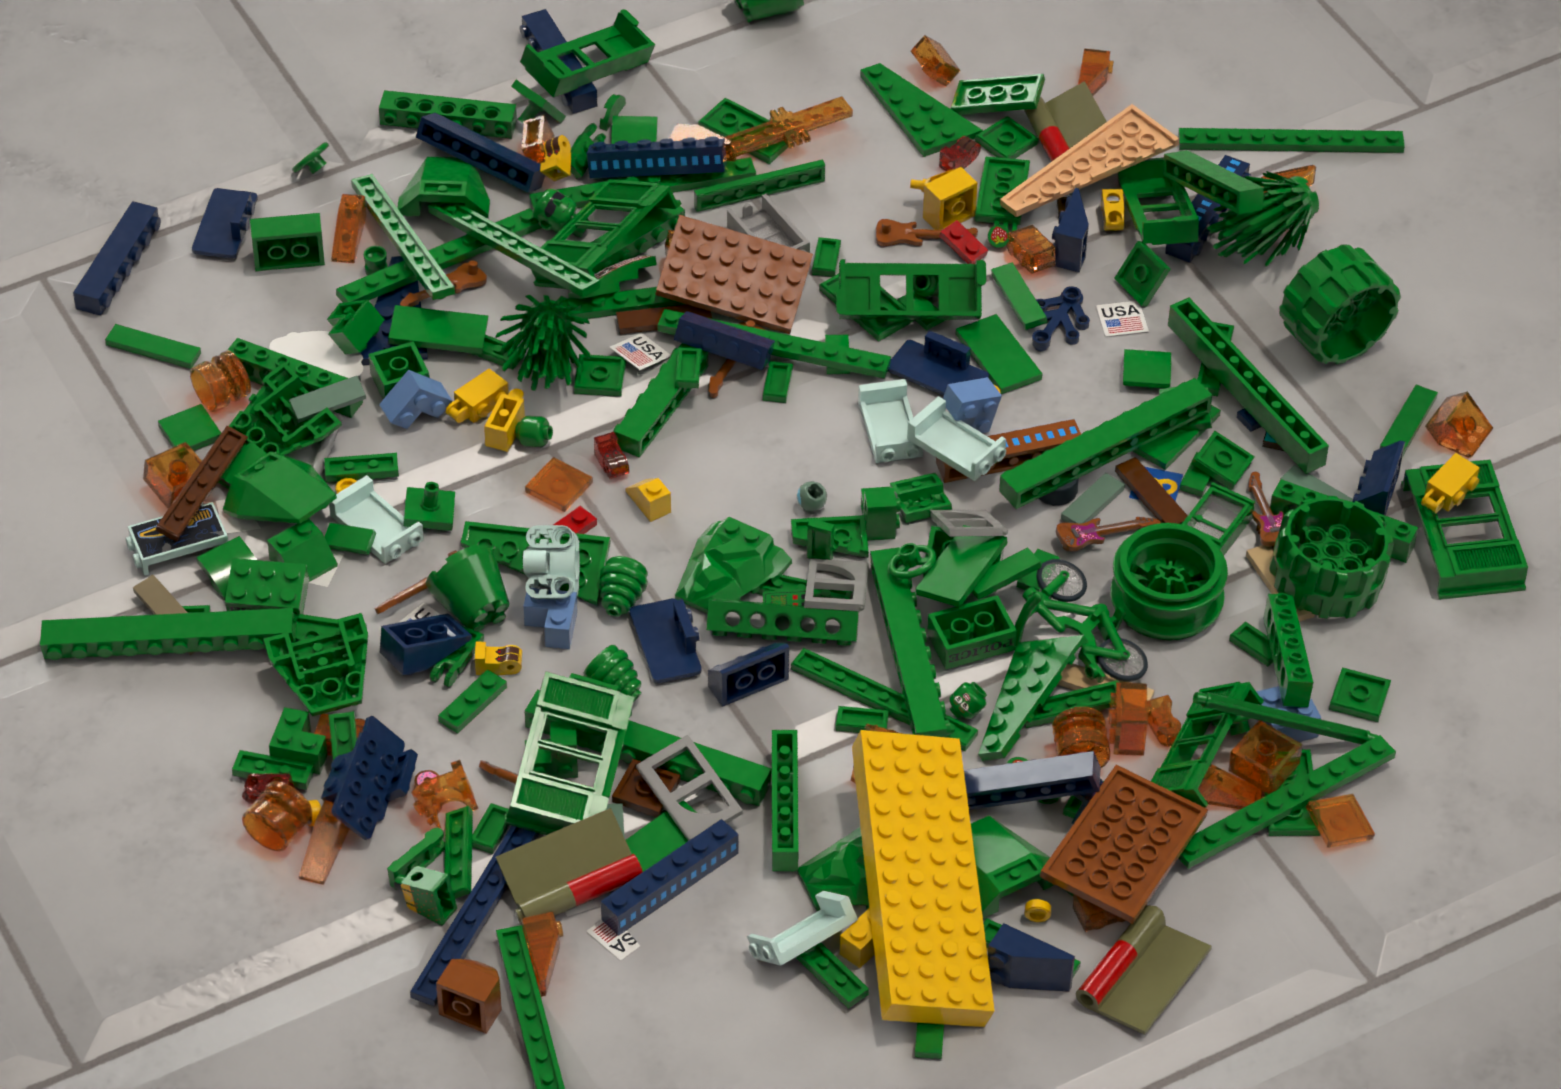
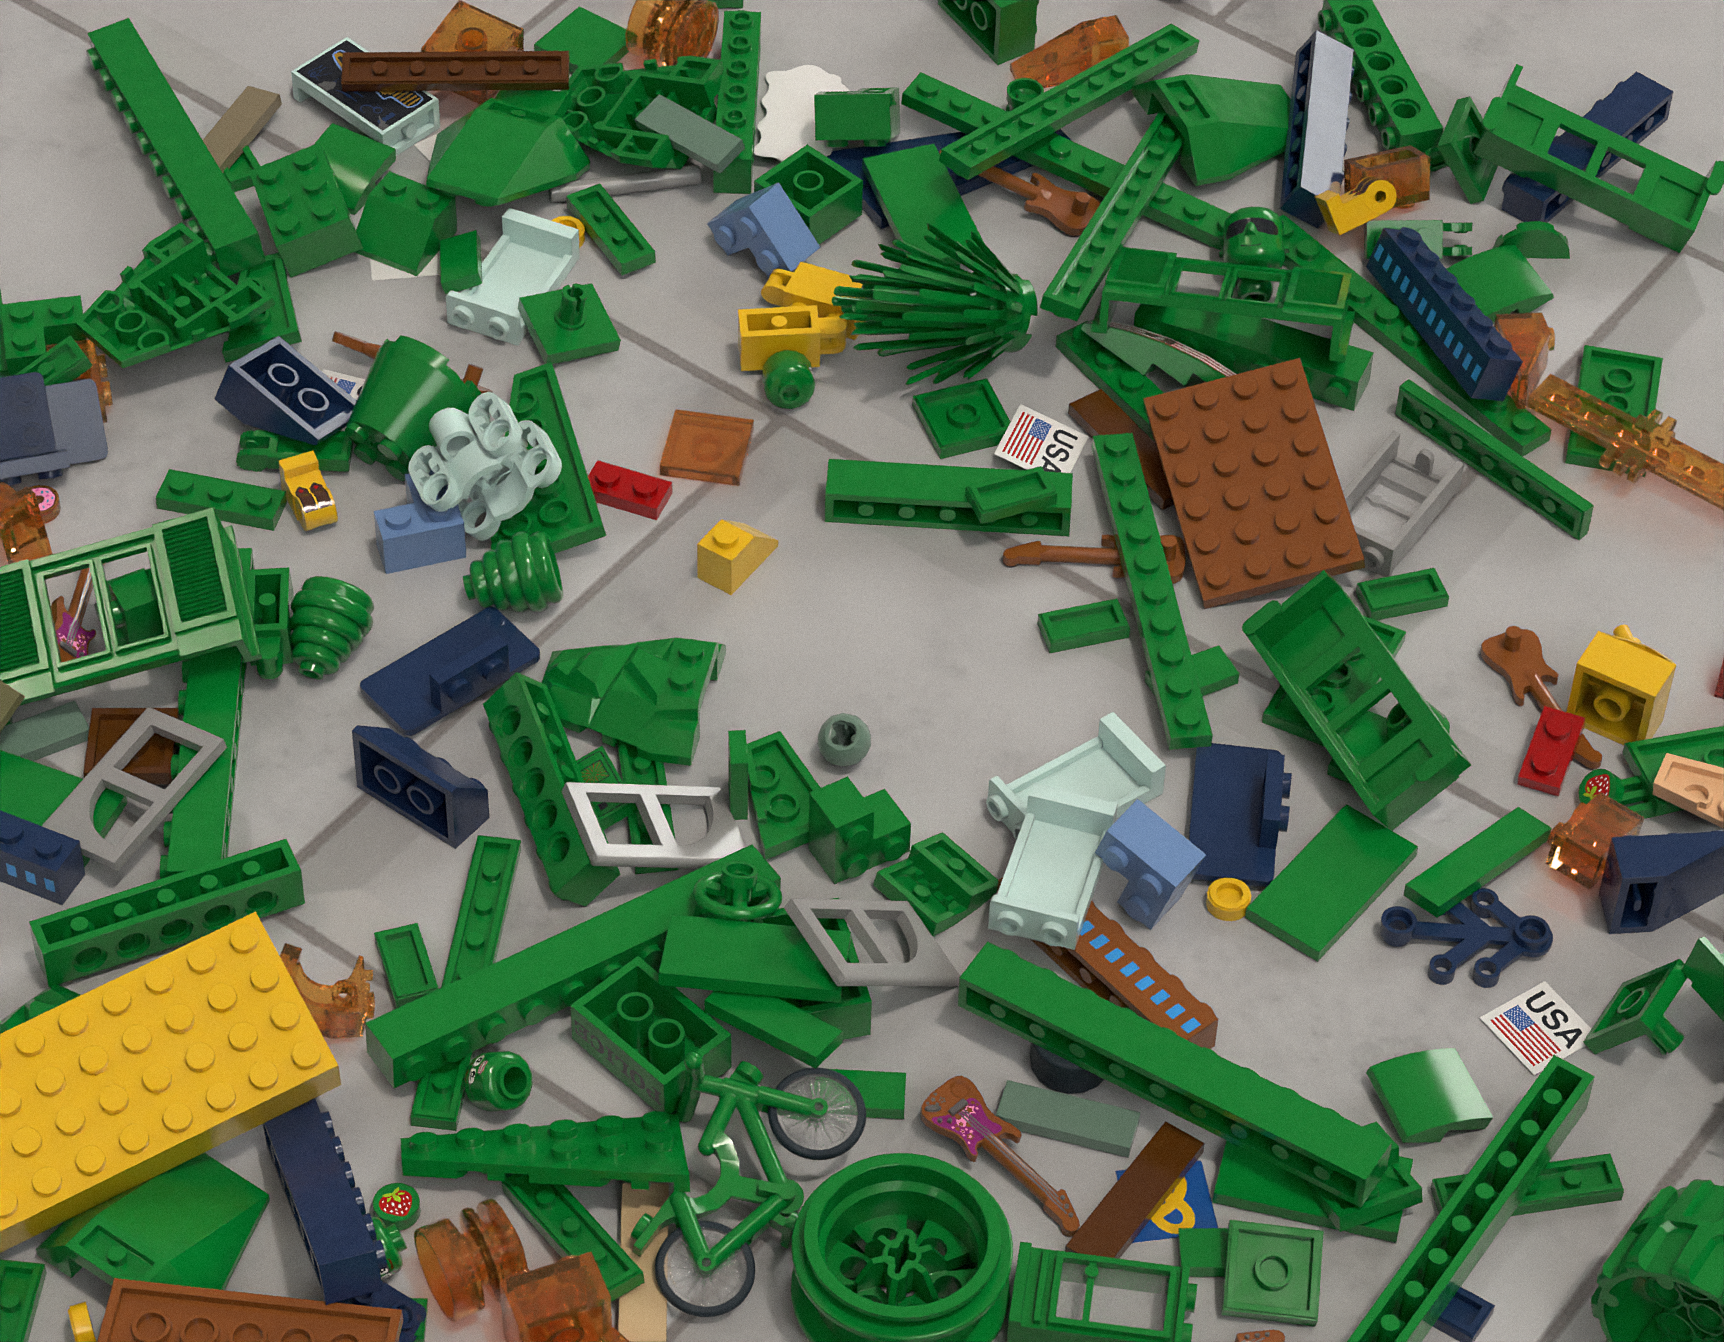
camera: 65 degrees right, 0 degrees up
(610, 455) = (792, 481): clear red leg -> none
(724, 340) = (1097, 517): dark blue brick -> none

